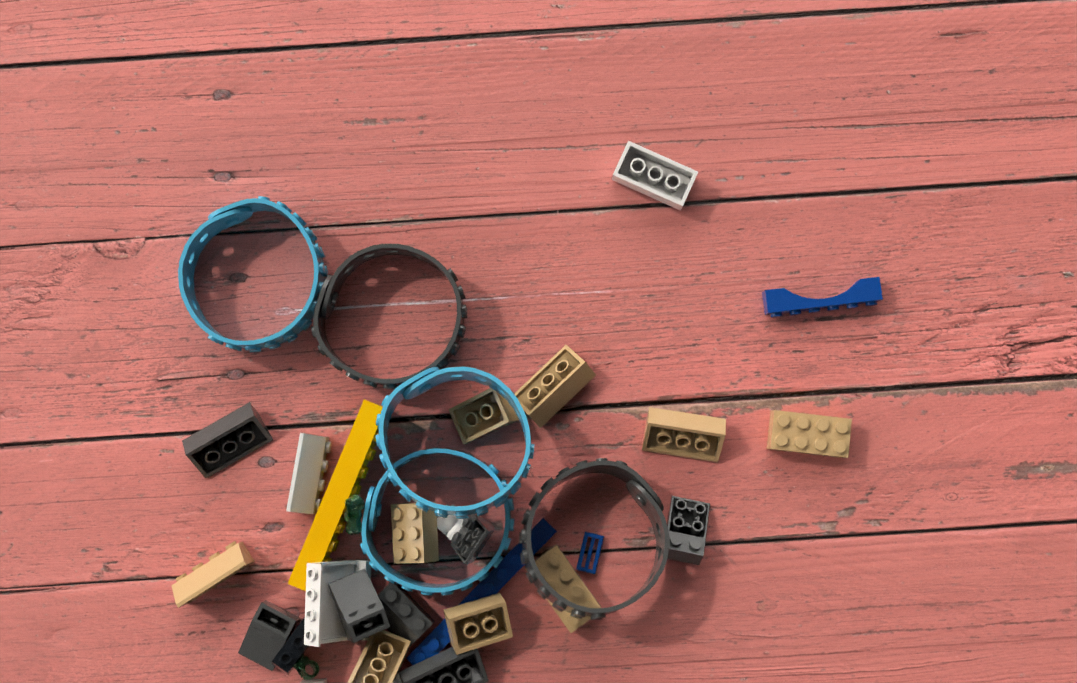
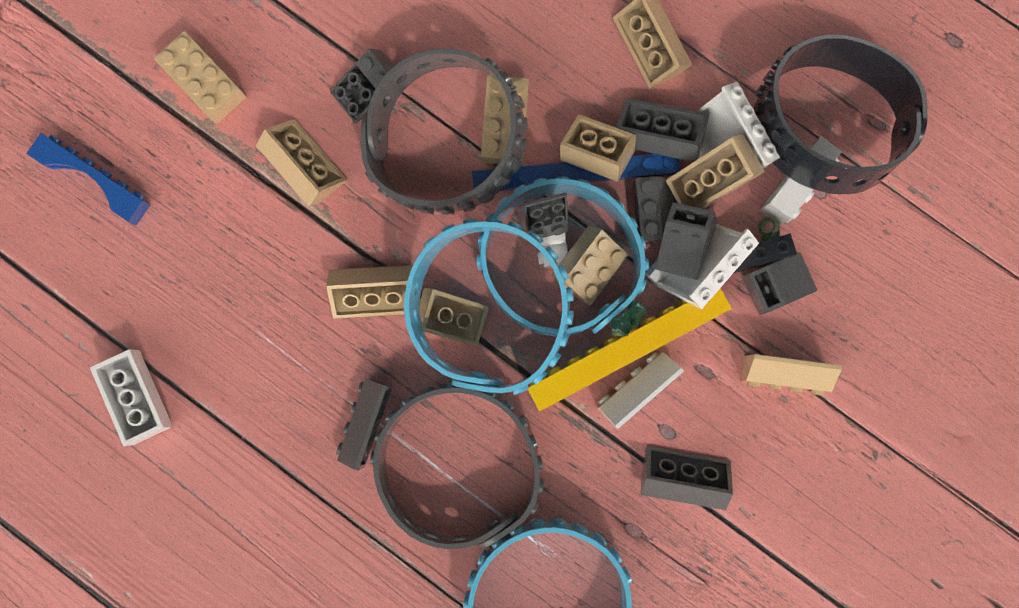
camera: 140 degrees left, 0 degrees up
(480, 290) = (364, 424): none -> dark grey slope
(593, 536) = (446, 143): blue tile -> none

